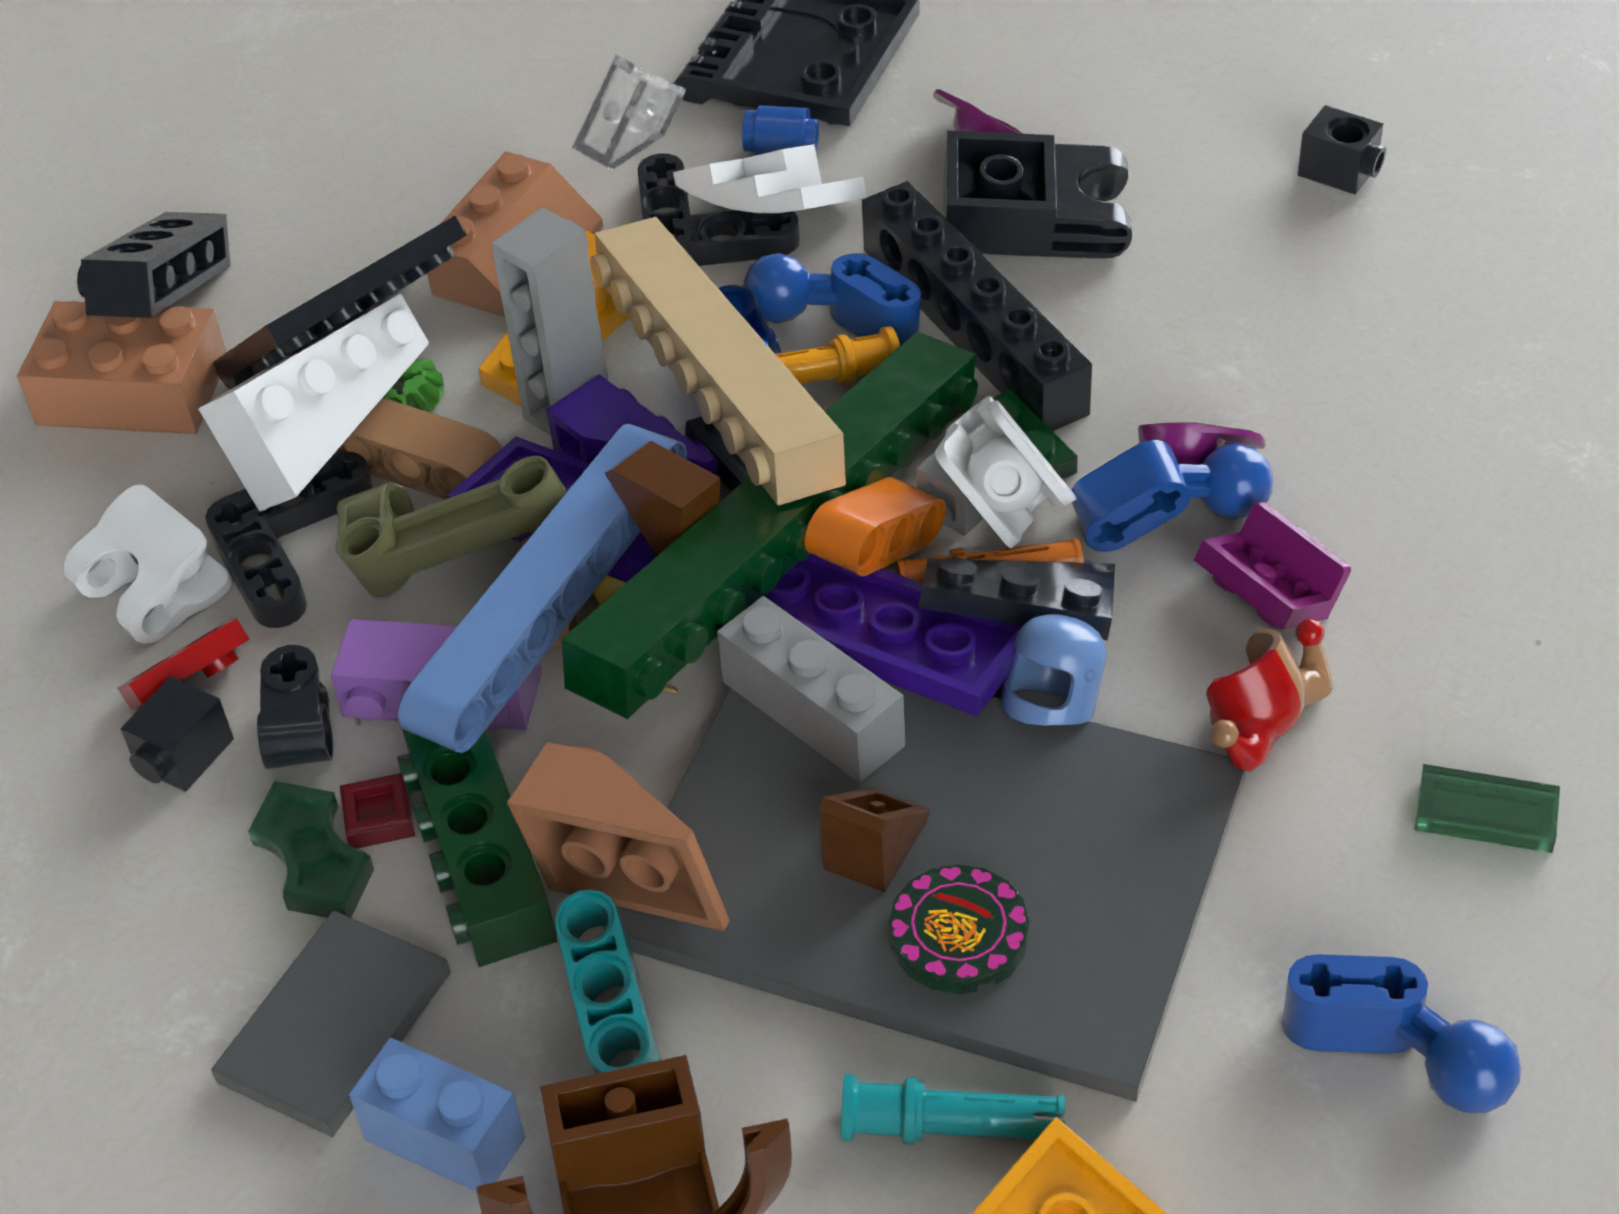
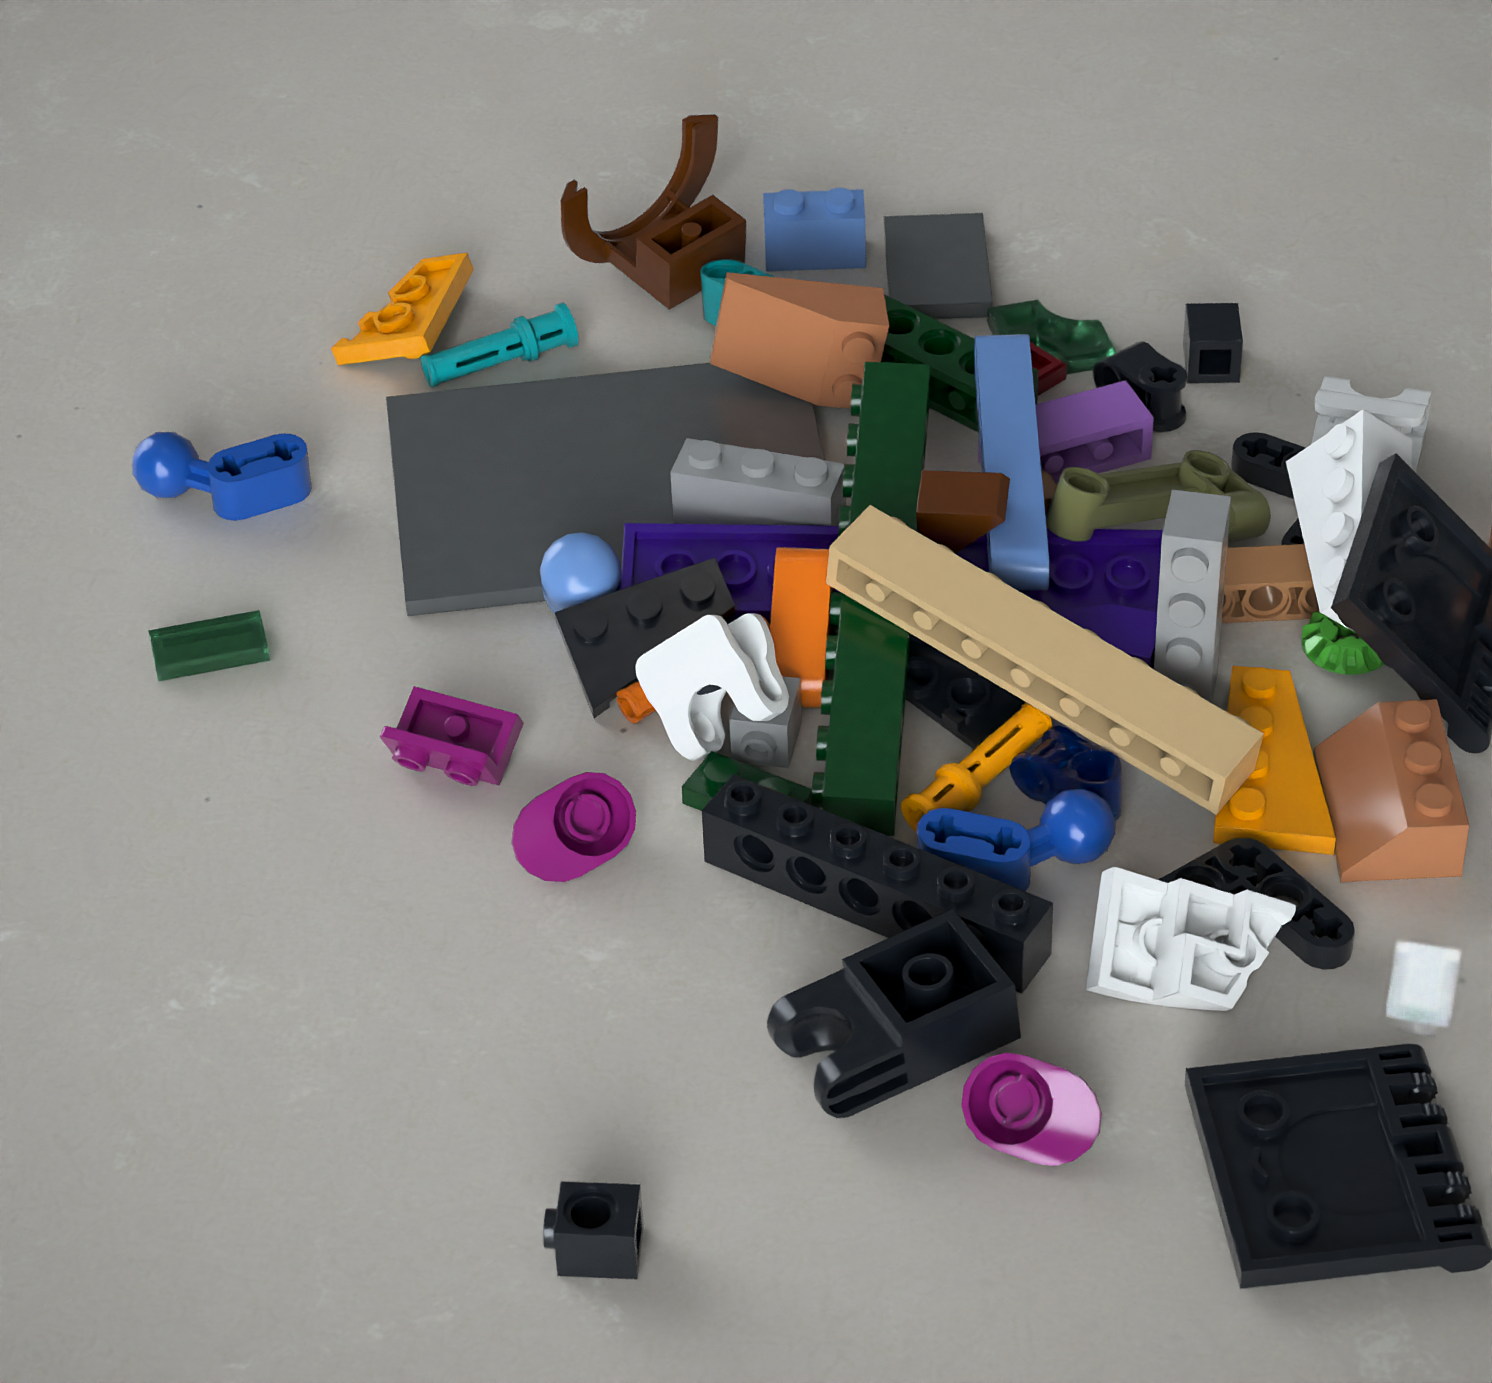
camera: 150 degrees right, 5 degrees down
(207, 653) = (1263, 381): red plate -> none
(778, 128) = (1240, 1018): blue brick -> none
(868, 834) = (647, 427): reddish brown slope -> none
(958, 928) = (553, 419): clear green tile -> none
(1150, 488) = (580, 741): blue beam -> none
(1268, 695) = (410, 623): red piece -> none

